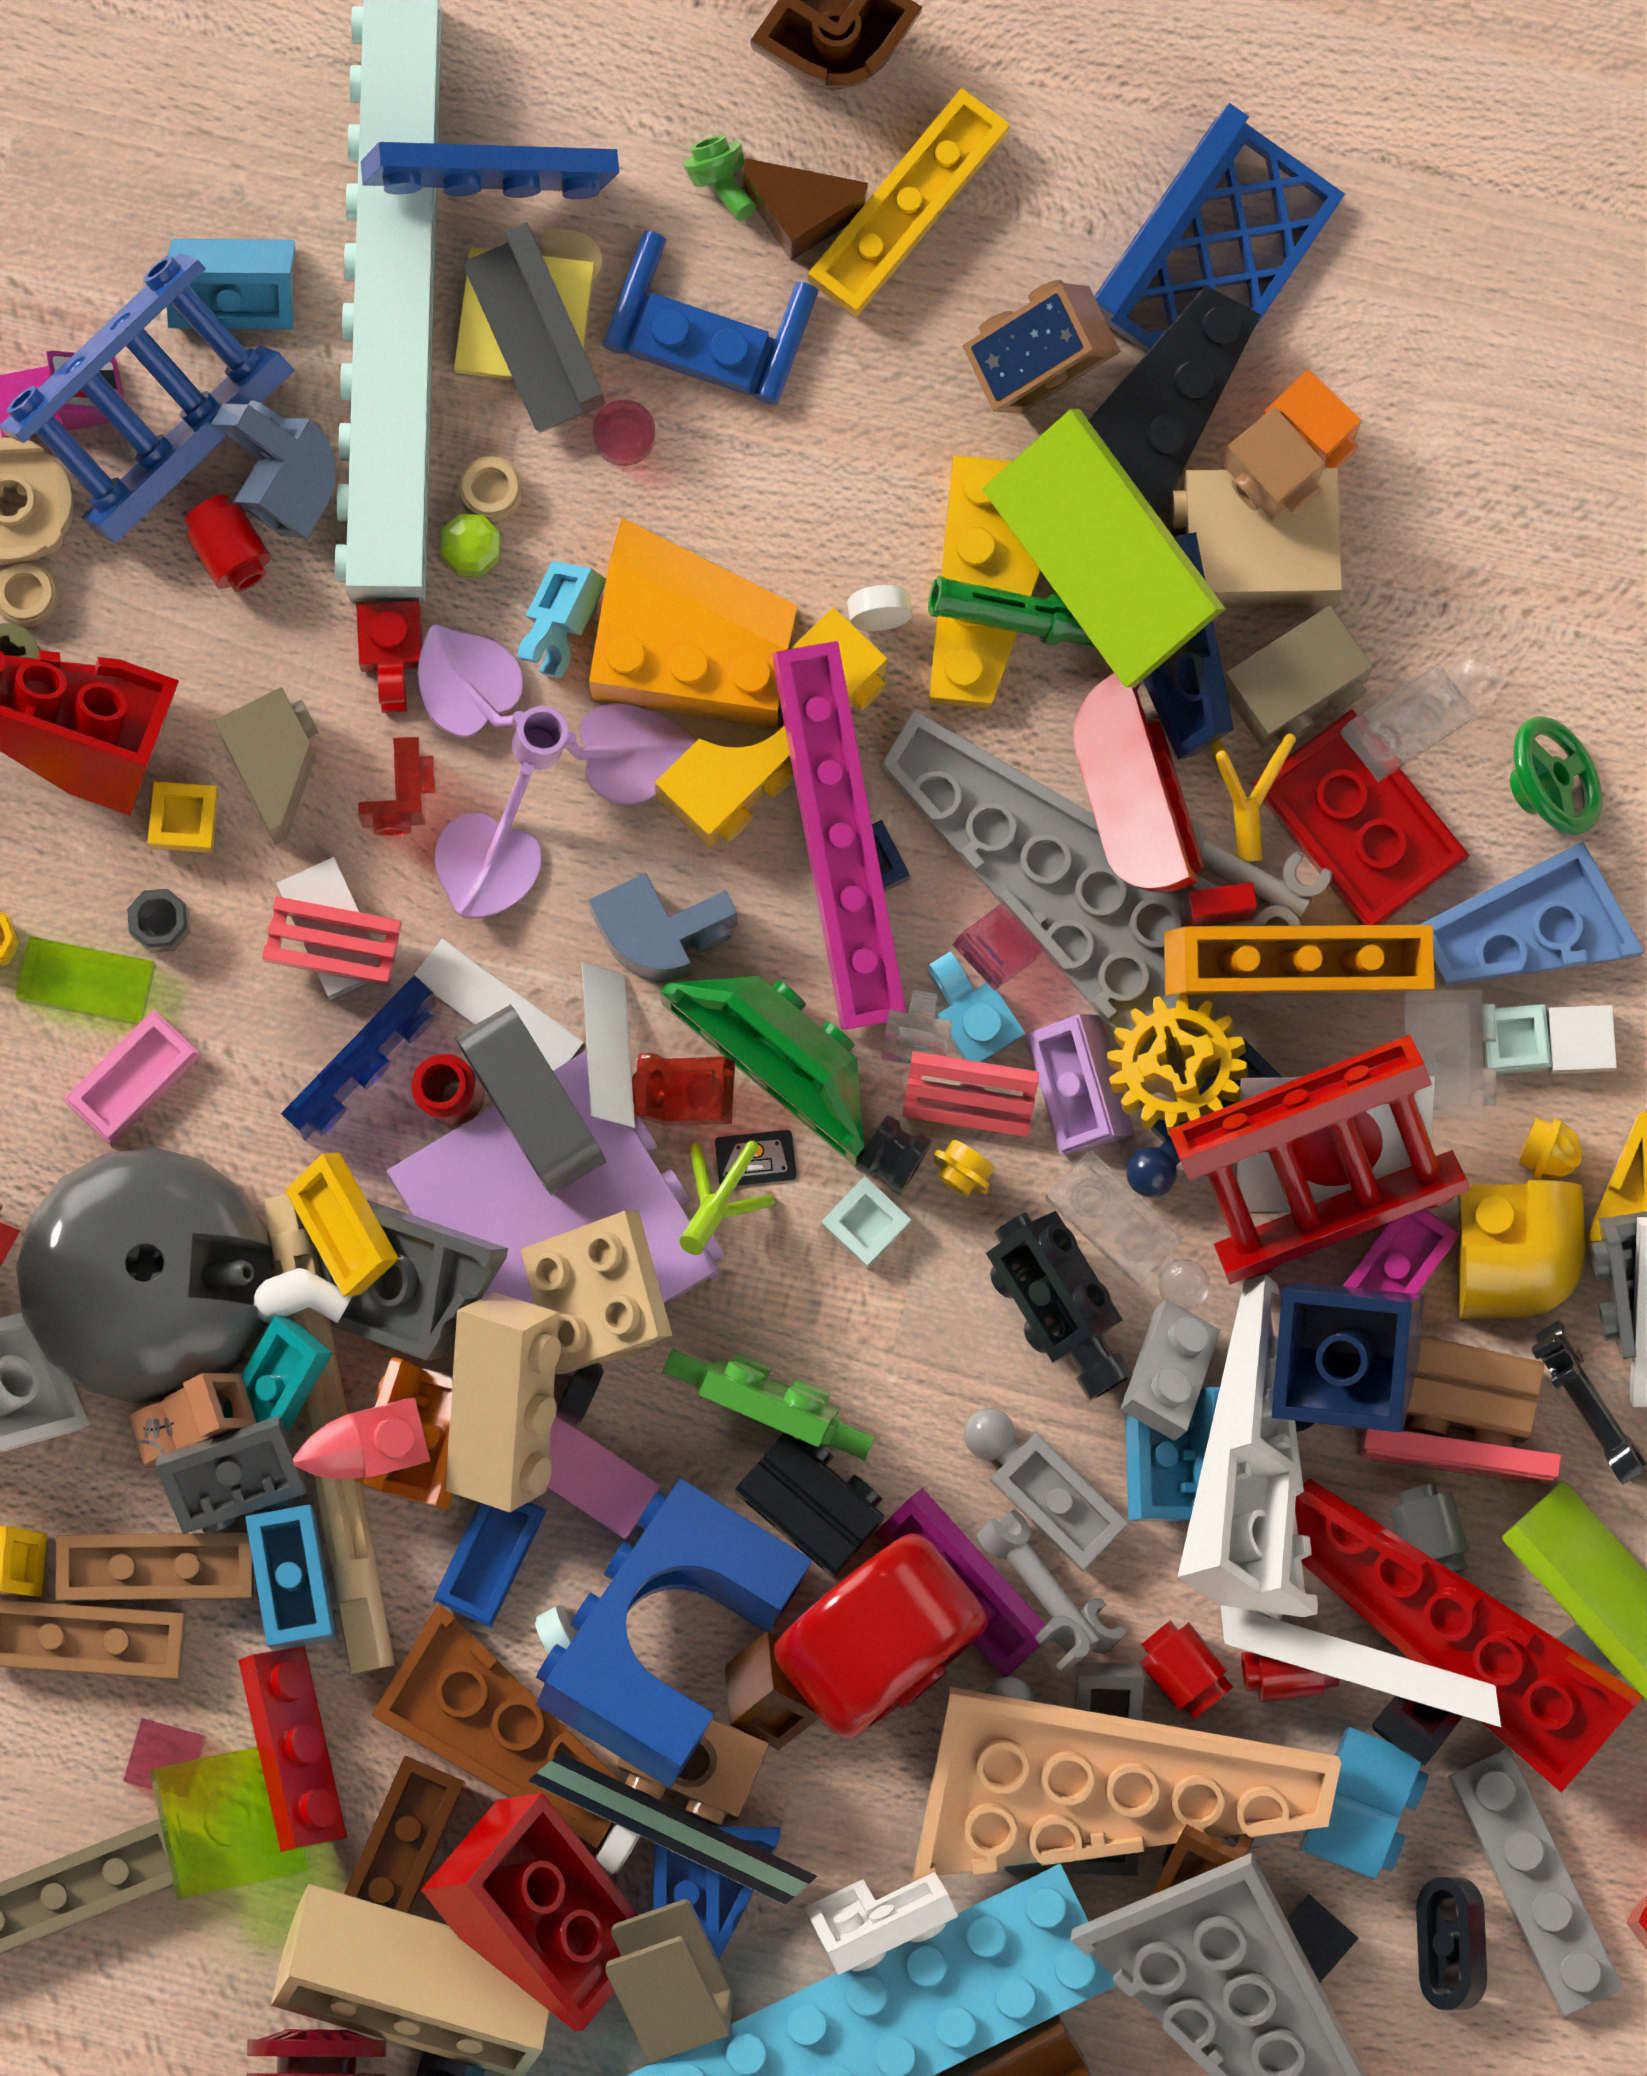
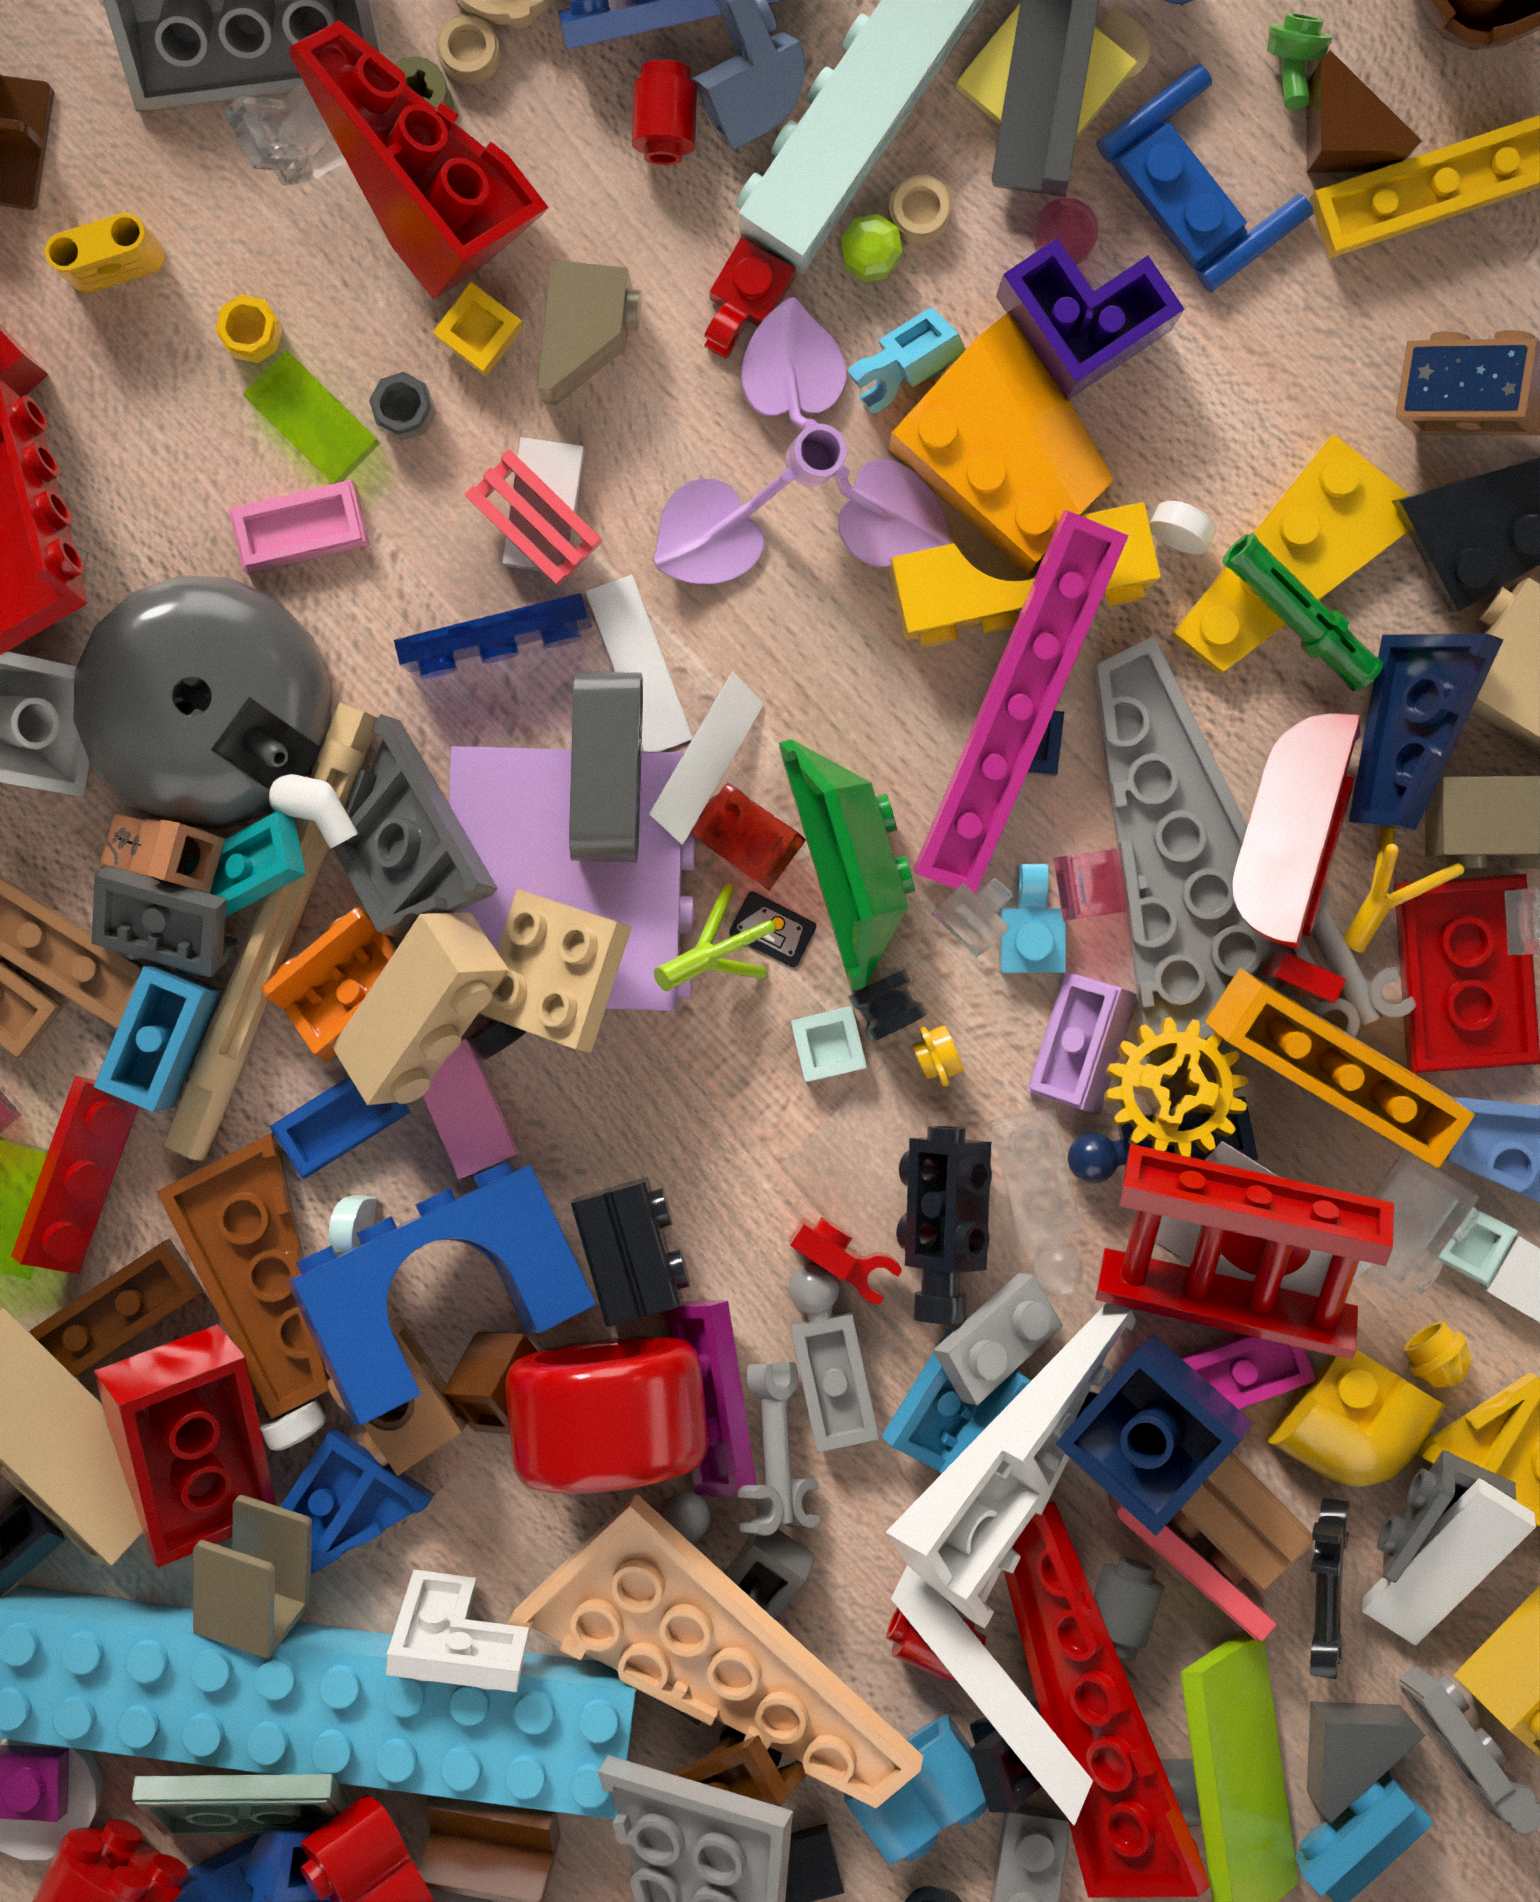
camera: 35 degrees right, 10 degrees up
(341, 1224) = (383, 768): yellow tile -> none
(366, 1443) = (286, 968): coral plate -> none
(413, 779) = (690, 422): clear red bracket -> none
(432, 1079) = (531, 704): red brick -> none
(649, 940) = (799, 686): sand blue brick -> none
(672, 1828) = (339, 1447): sticker -> none
(690, 503) = (1083, 330): none -> dark purple brick
(748, 1390) = (645, 1150): bright green plate -> none
(969, 1103) = (980, 1001): coral tile -> none
(977, 1389) = (829, 1248): none -> red plate
(1103, 548) = (1412, 600): lime tile -> none
(1185, 1668) = (847, 1586): red brick -> none

